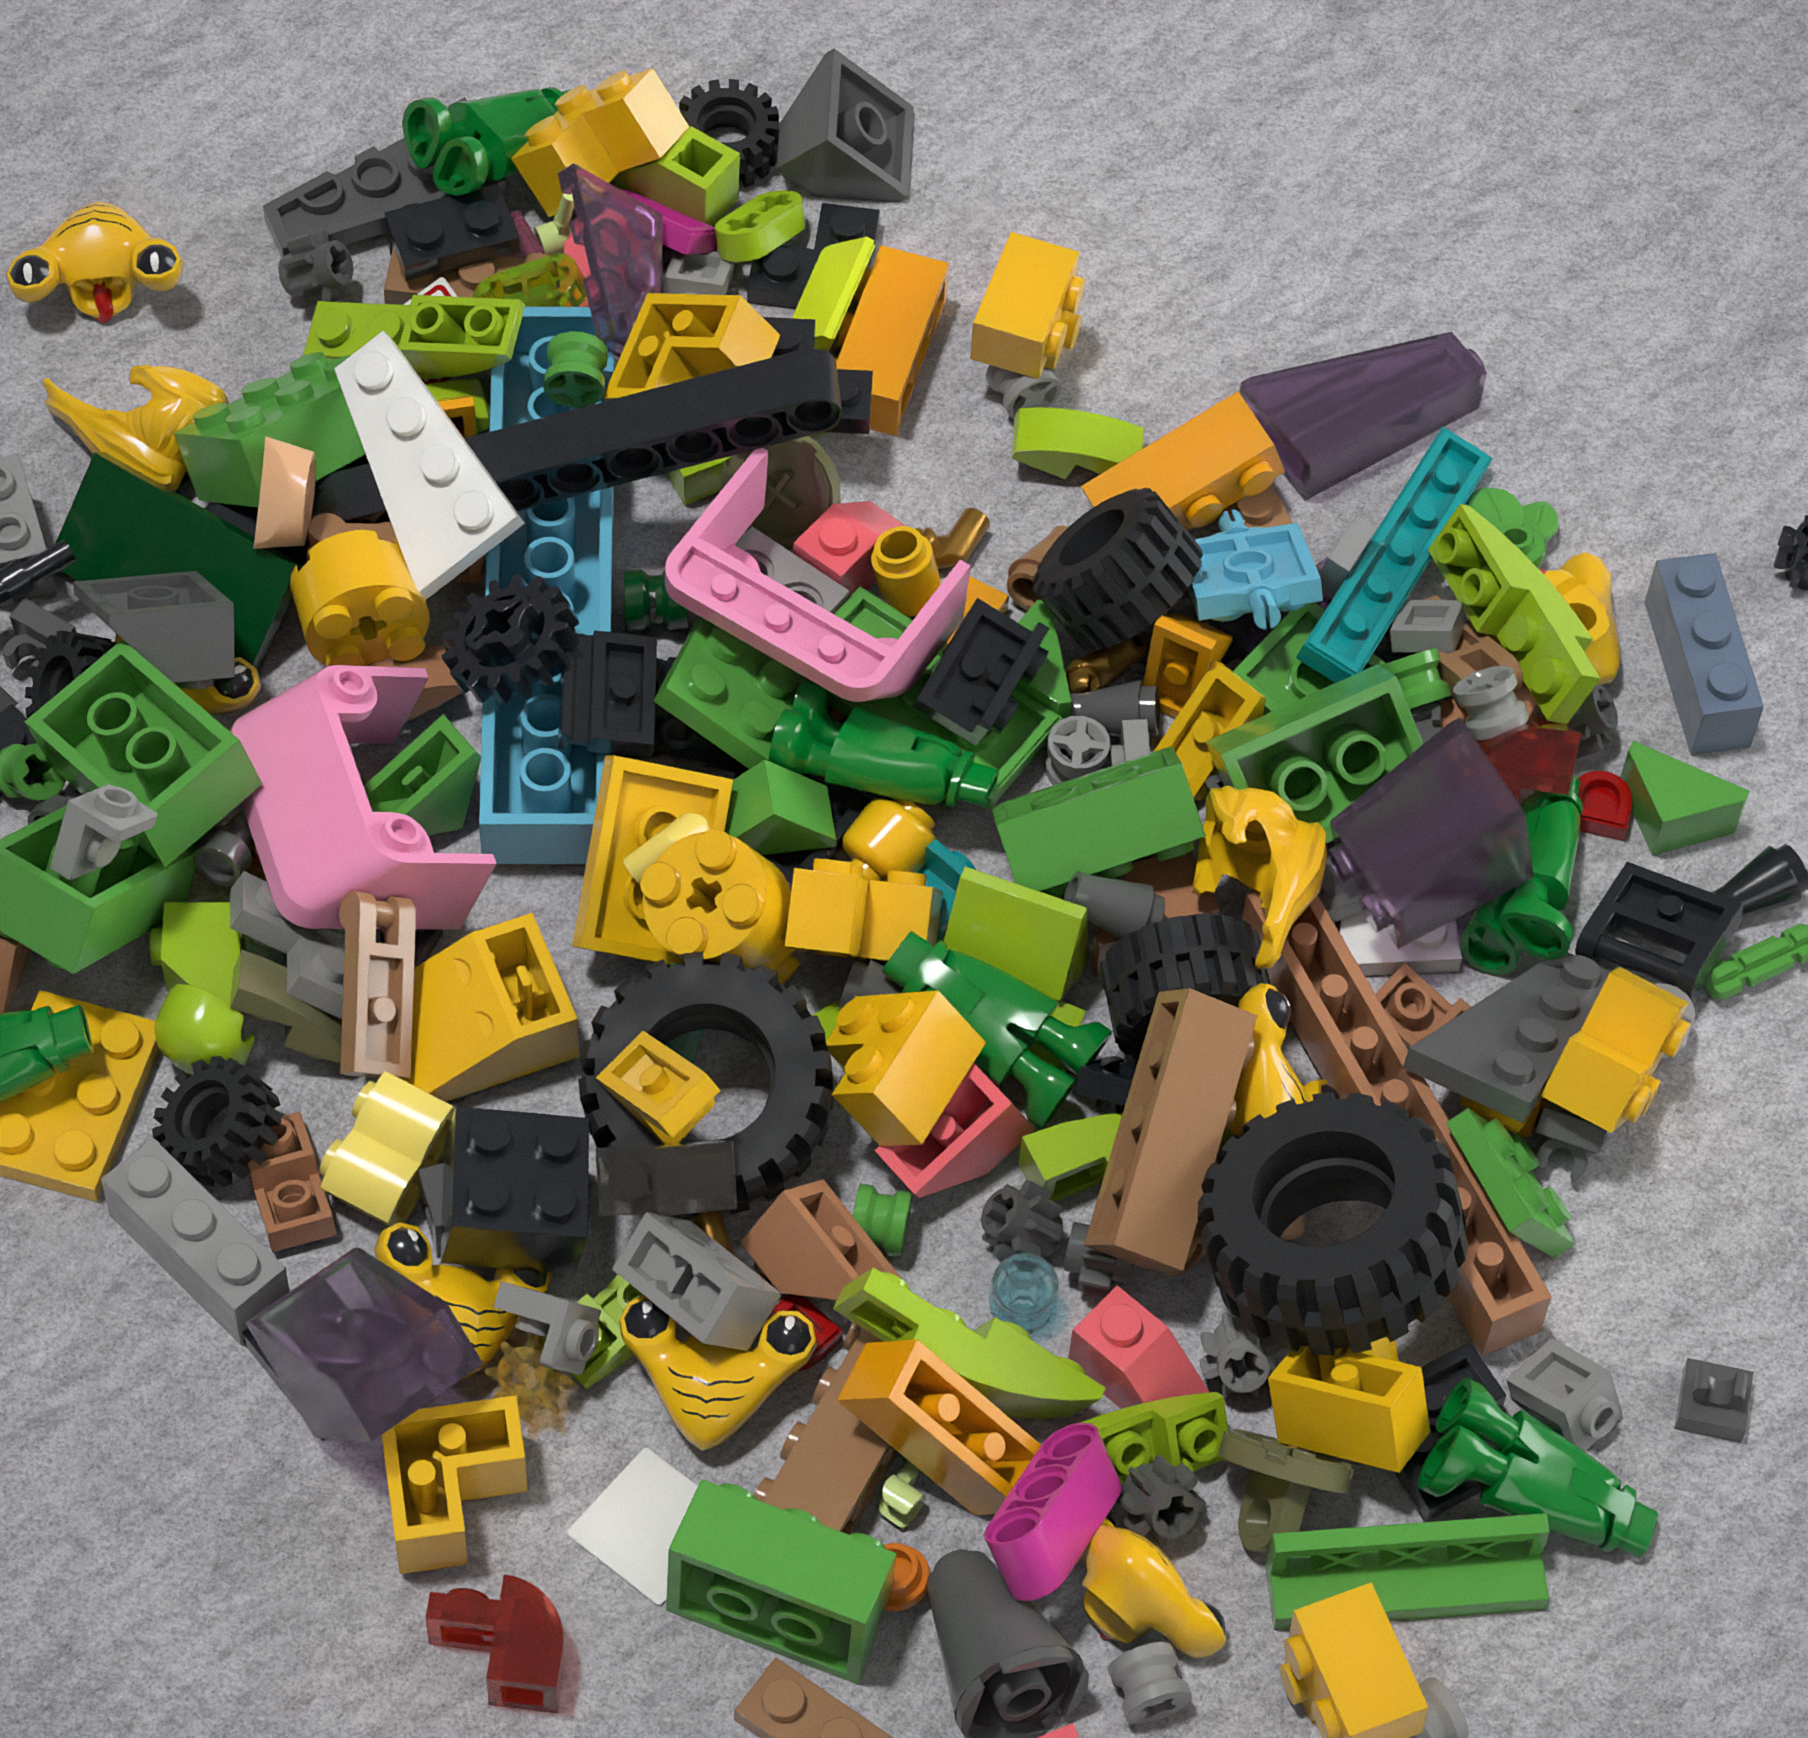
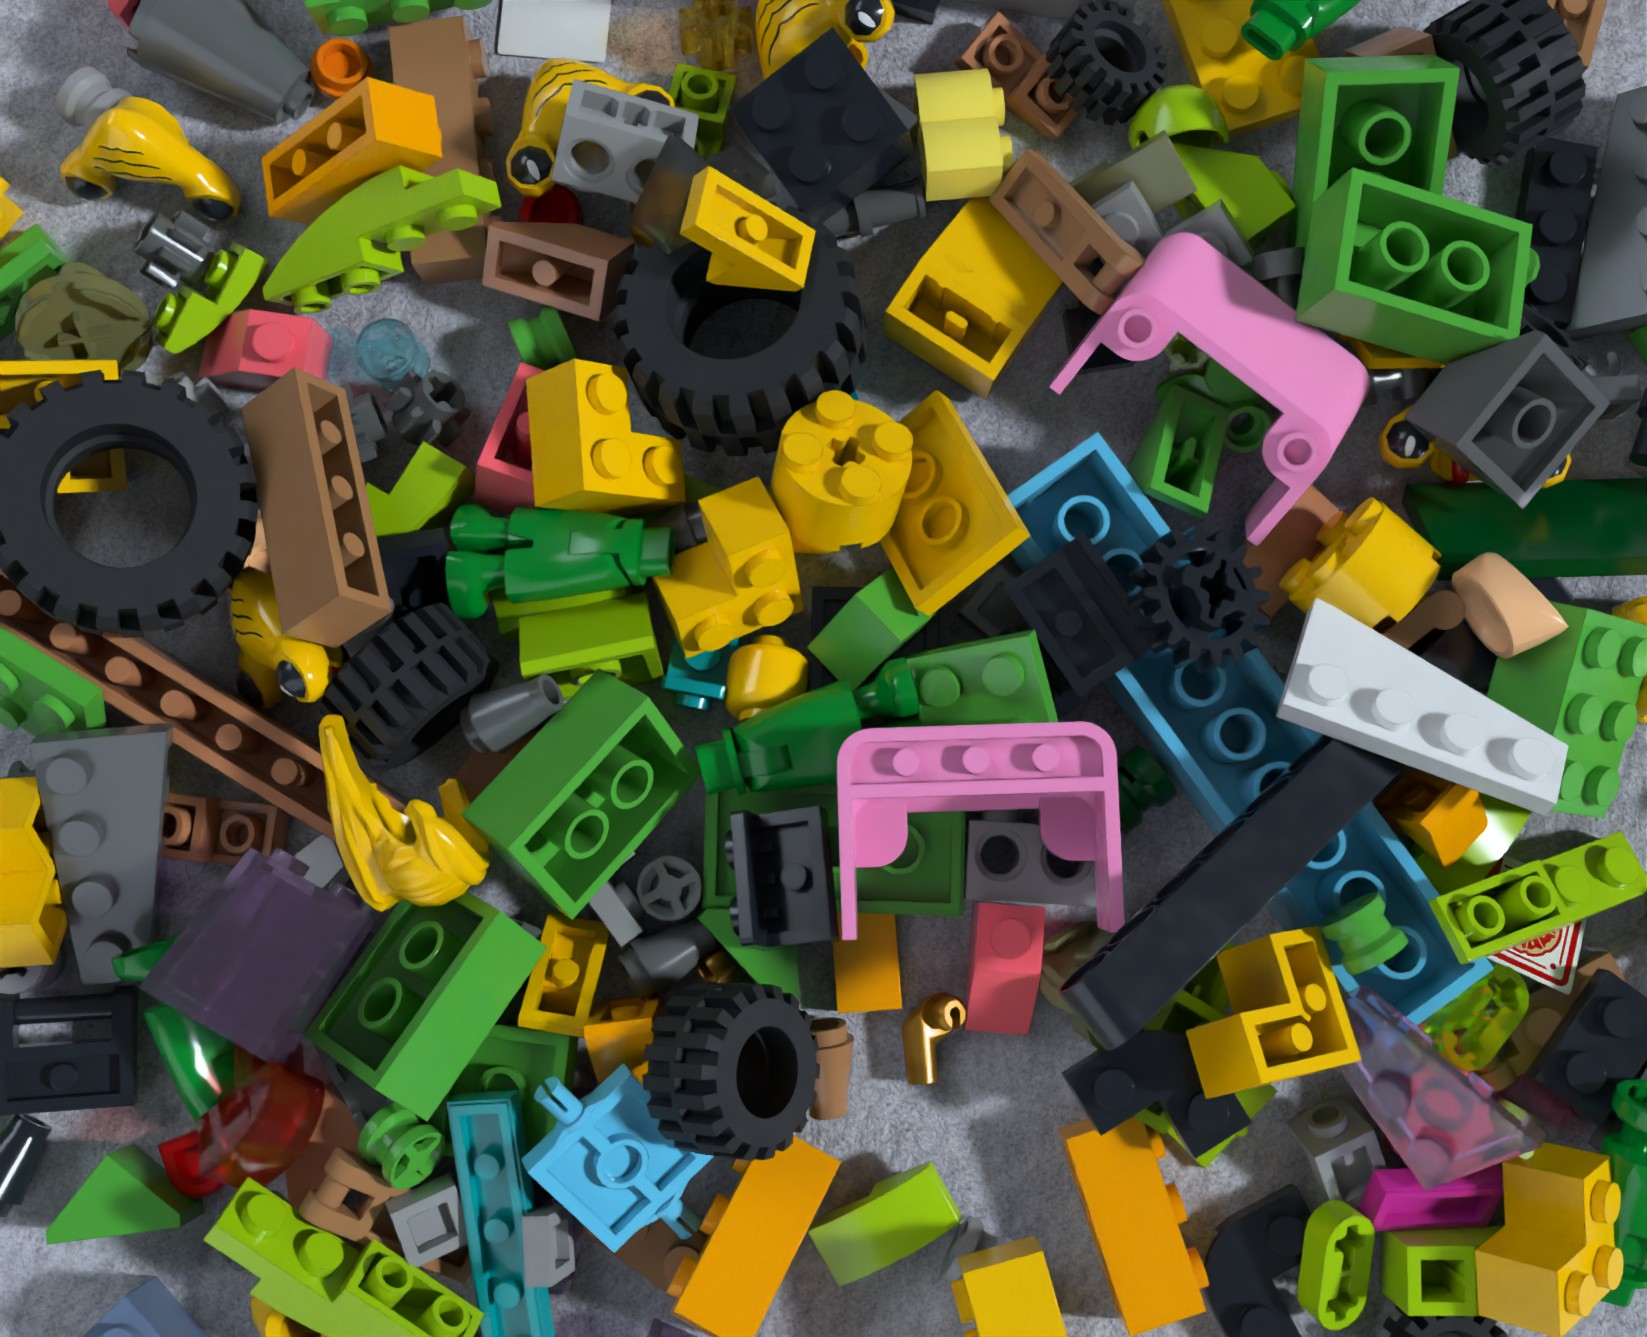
camera: 150 degrees right, 25 degrees up
(95, 827) = (1380, 138): light grey bracket -> none
(567, 1325) = (722, 62): light grey bracket -> none
(650, 851) = (915, 508): light yellow arm -> none
(833, 287) = (1215, 1223): neon yellow slope -> none
(905, 569) = (950, 960): yellow brick -> none
(1053, 1511) = (237, 117): dark pink beam -> none
(1491, 702) = (308, 1167): light grey wheel -> none

